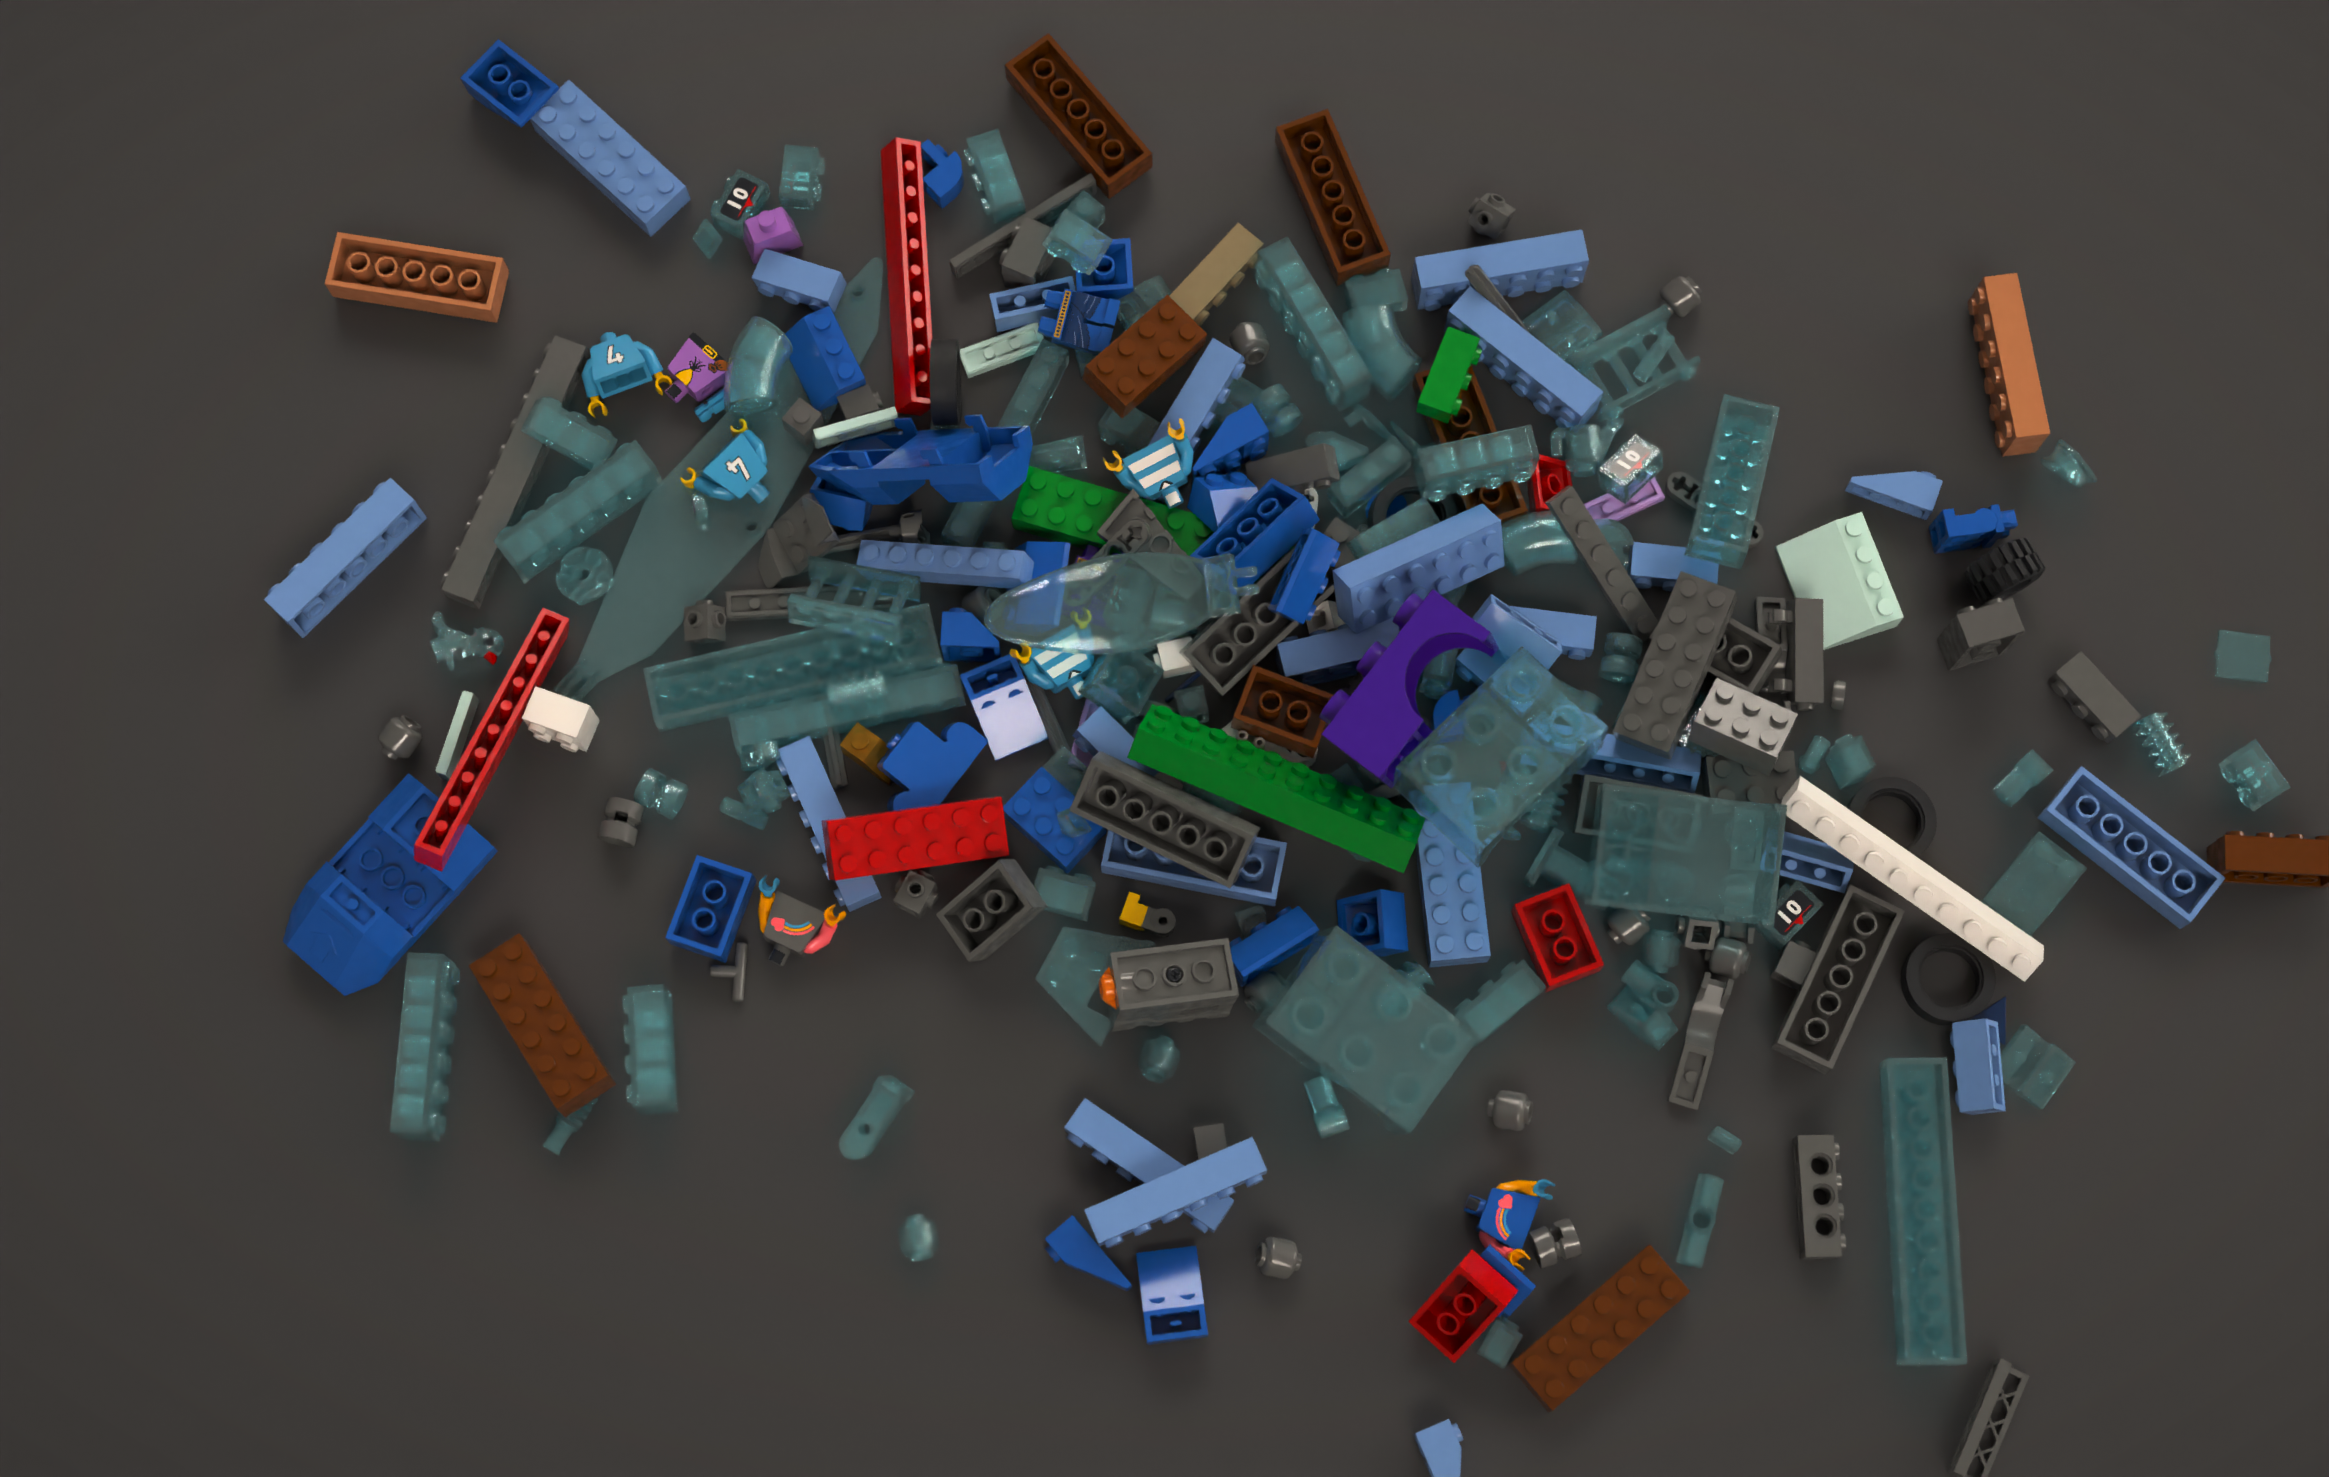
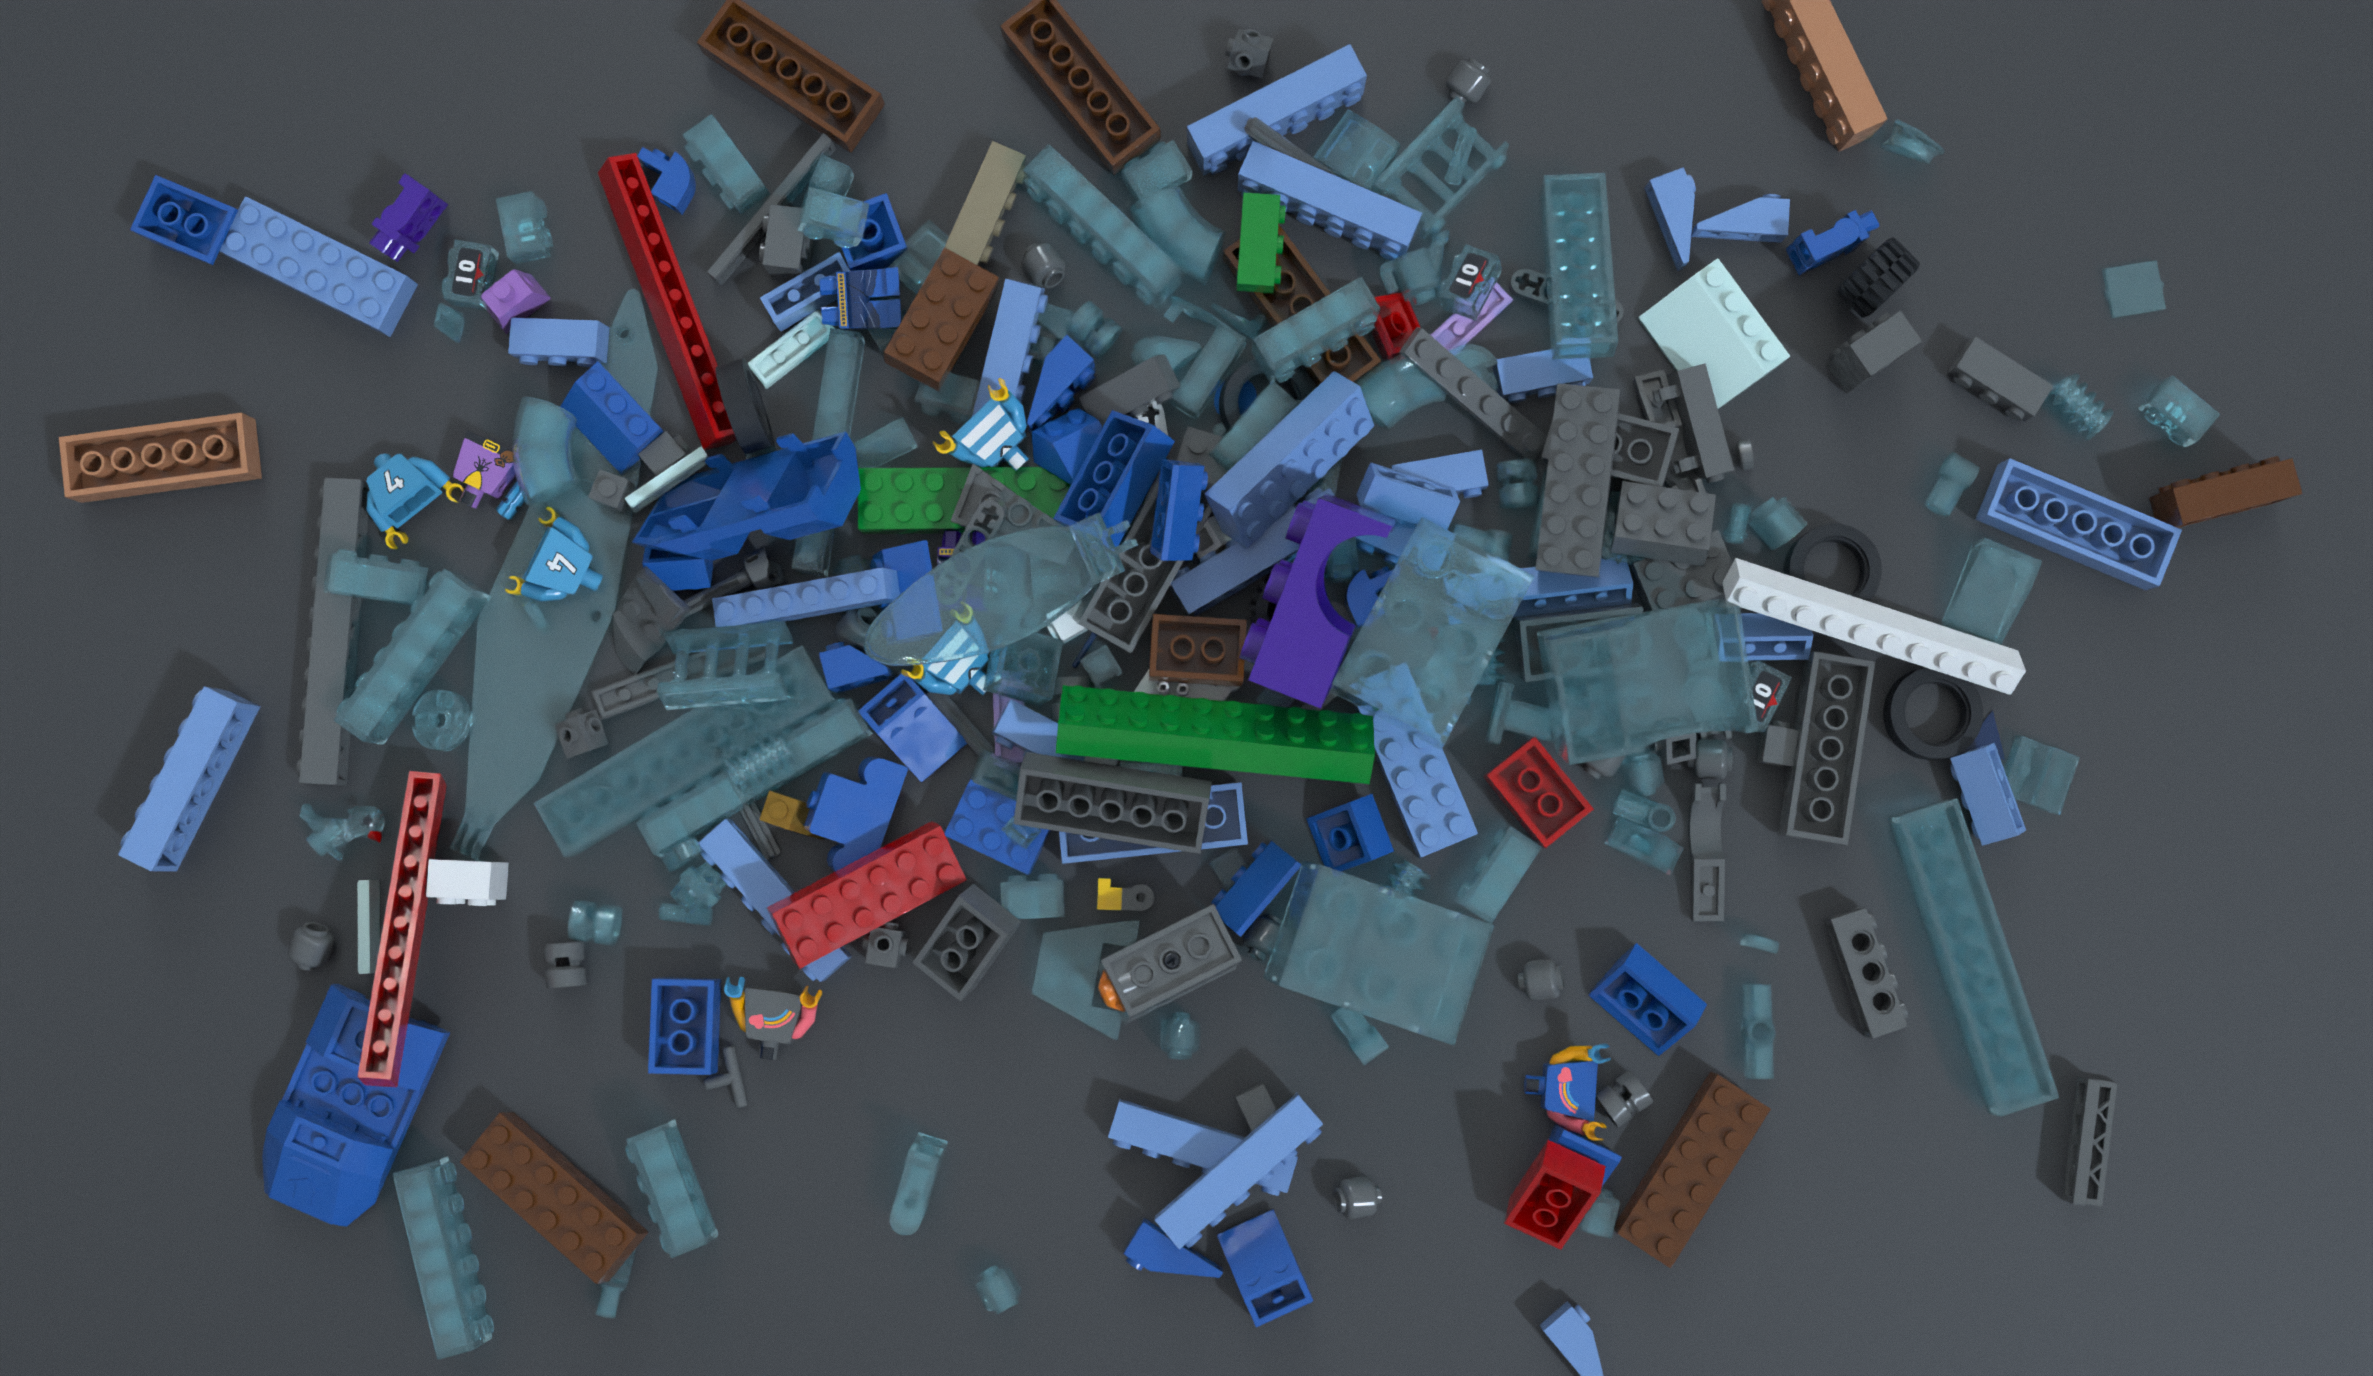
camera: 15 degrees left, 10 degrees up
(702, 140) = (407, 219): none -> dark purple hips
(1604, 1159) = (1648, 1000): none -> blue slope
(1835, 454) = (1673, 206): none -> medium blue slope

